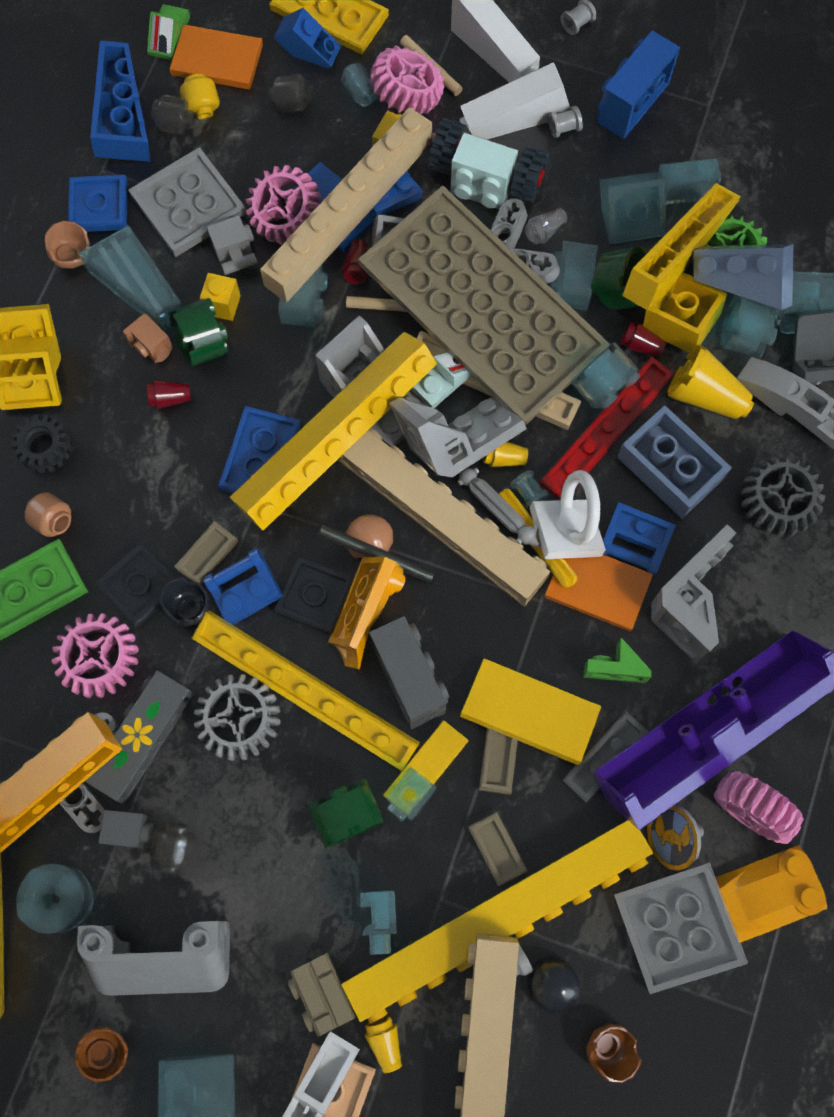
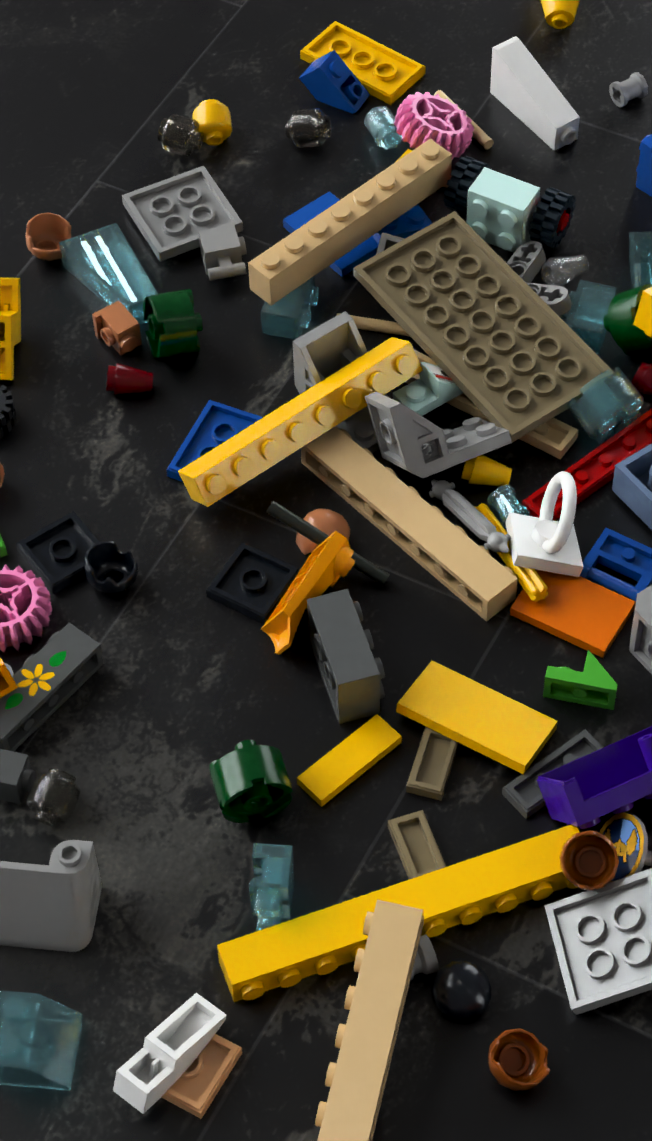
camera: 10 degrees right, 20 degrees down
(98, 202) = (88, 203): blue plate -> none
(117, 114) = (123, 127): blue wedge -> none
(166, 30) = (188, 65): slope -> none
(206, 553) = (144, 529): dark tan tile -> none
(218, 55) = (244, 92): orange tile -> none
(223, 294) = (206, 294): yellow brick -> none
(232, 690) = (126, 679): light grey gear -> none
(248, 595) = (180, 572): blue plate -> none
(264, 213) = (264, 220): bright pink gear -> none
(305, 690) = (229, 669): yellow tile -> none
(322, 995) = (193, 959): dark tan brick -> none
(351, 269) = (349, 289): dark red cone -> none
(384, 1043) = (256, 1020): yellow cone -> none
(410, 781) = (327, 773): clear light blue brick -> none
(516, 104) = (554, 156): white slope -> none
(565, 121) = (600, 179): light grey bush -> none
(652, 863) = (589, 860): none -> dark orange hair

